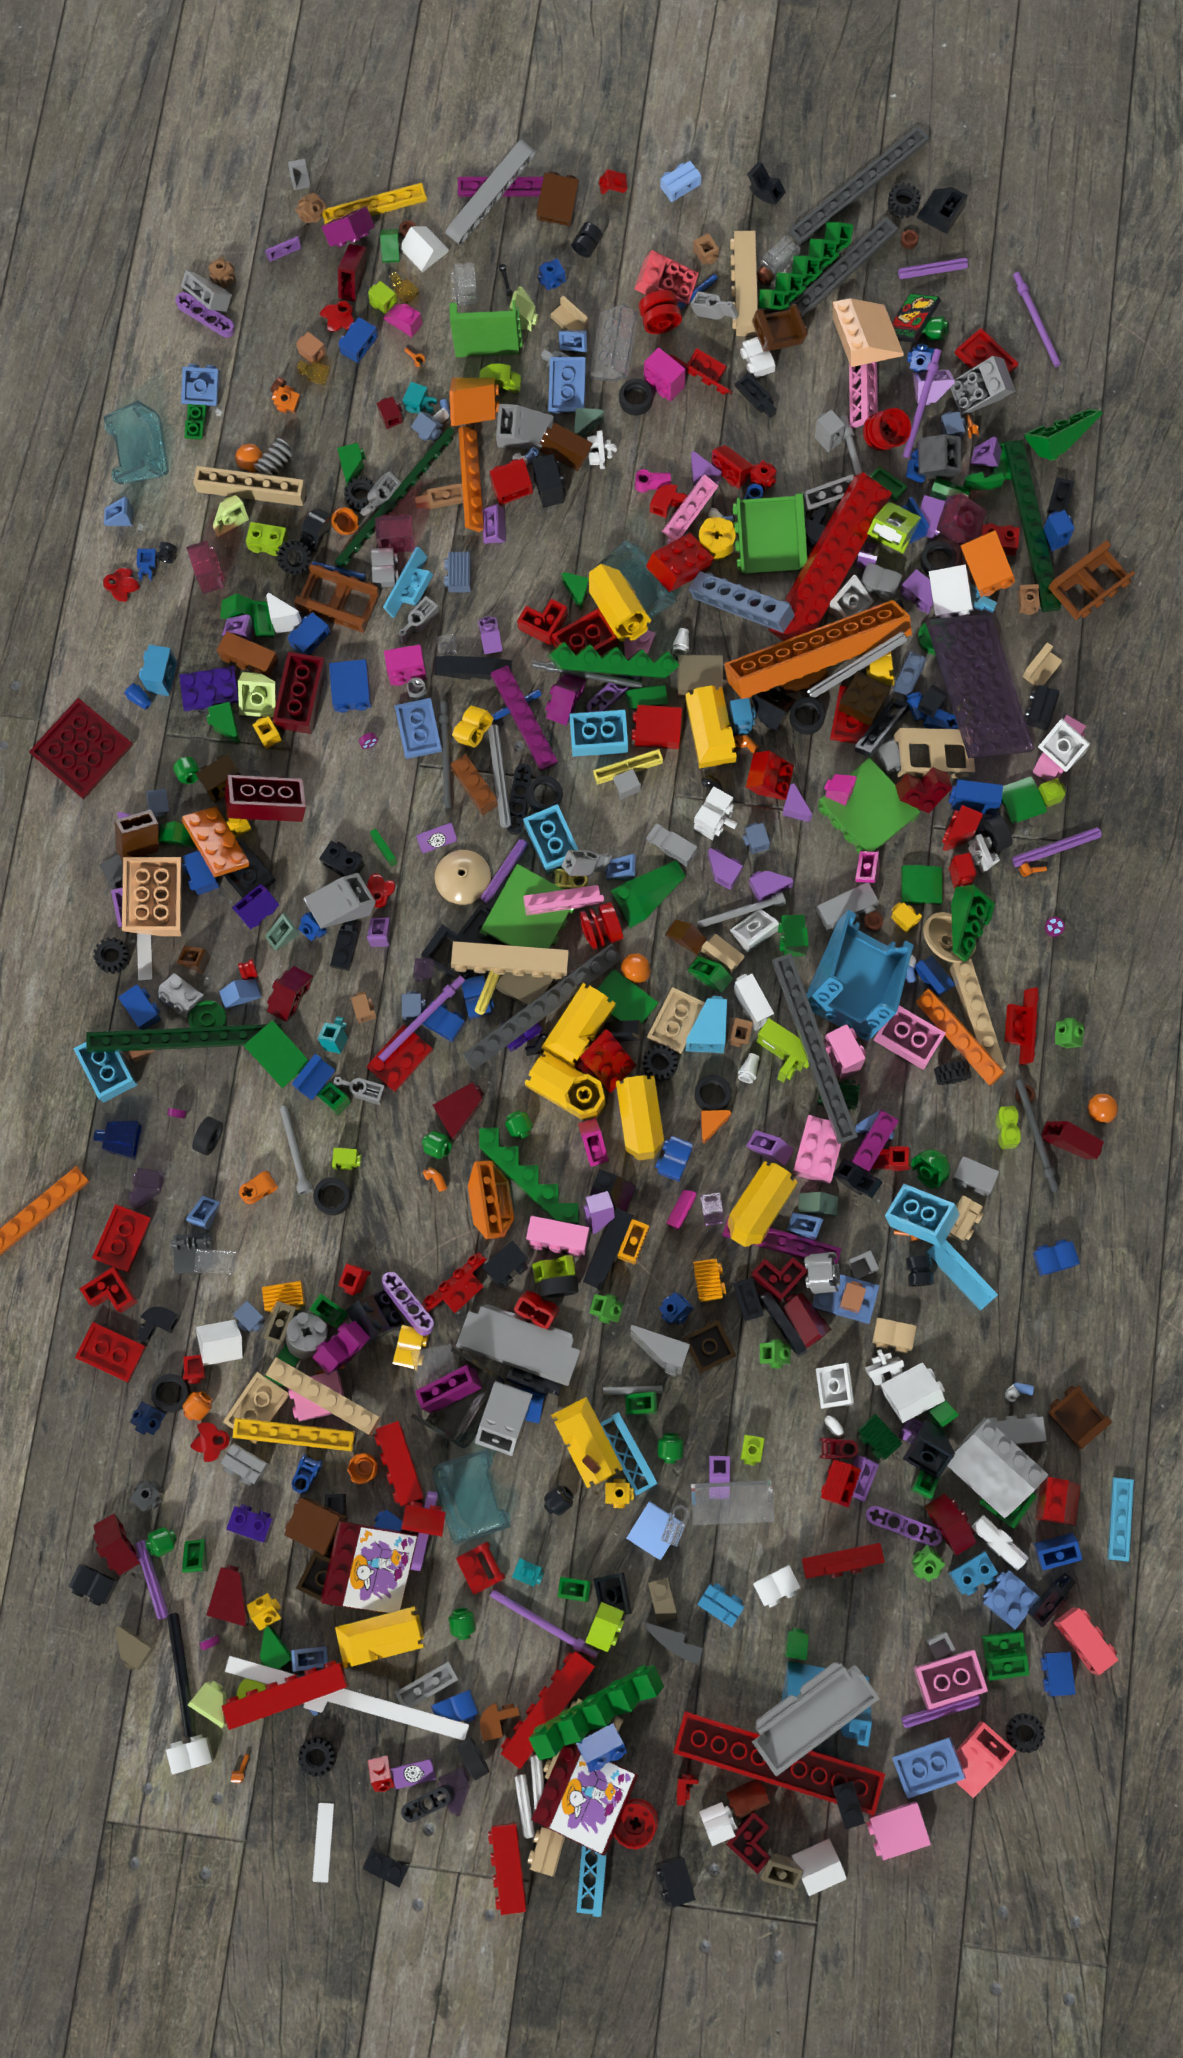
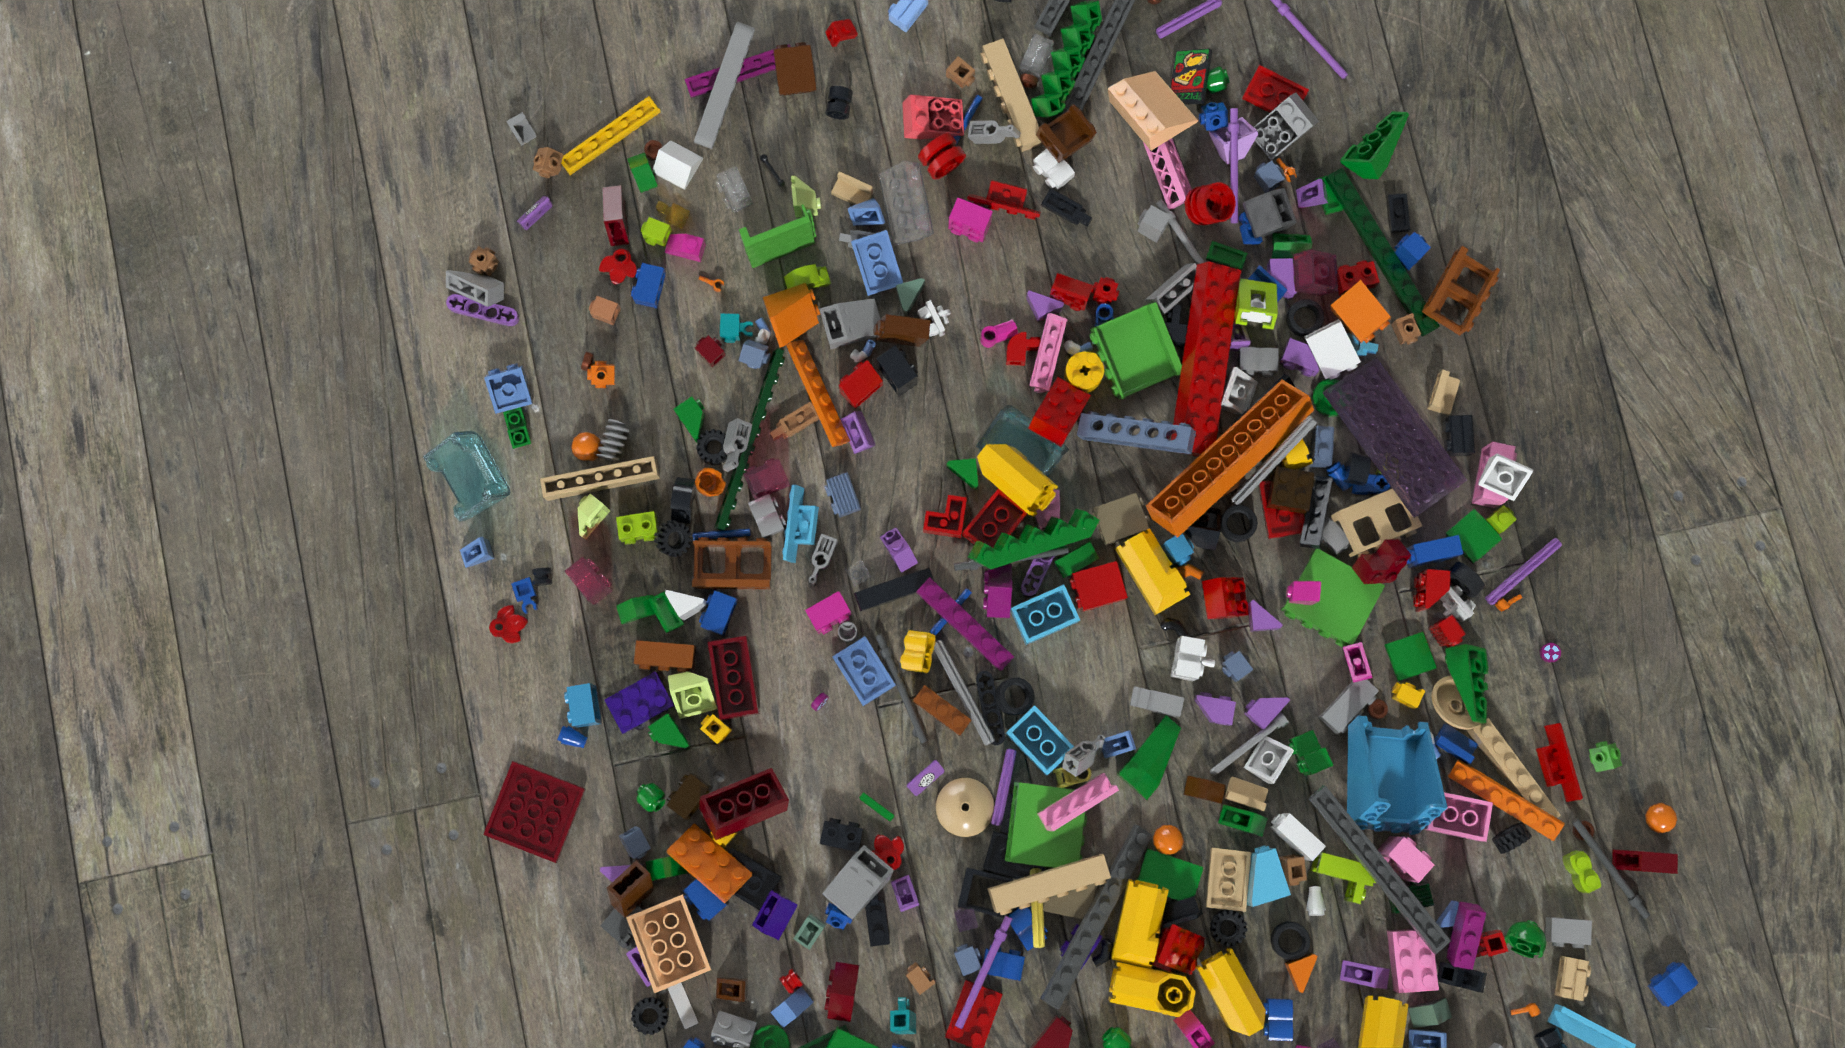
camera: 25 degrees left, 5 degrees up
(240, 626) = (644, 630): medium lavender slope -> none
(316, 372) = (619, 333): clear yellow plate -> none
(348, 227) = (596, 171): magenta brick -> none
(350, 685) = (780, 651): blue brick -> none
(551, 274) = (817, 151): blue brick -> none
(601, 925) = (1122, 812): red wheel -> none
(627, 784) = (1090, 656): light grey panel -> none
(636, 763) = (1084, 637): light yellow piece -> none
(638, 384) = (948, 265): black tyre -> none
(681, 642) = (1089, 493): white cone -> none
(922, 1215) = (1537, 993): medium azure brick -> none
(979, 482) = (1316, 224): green slope -> none

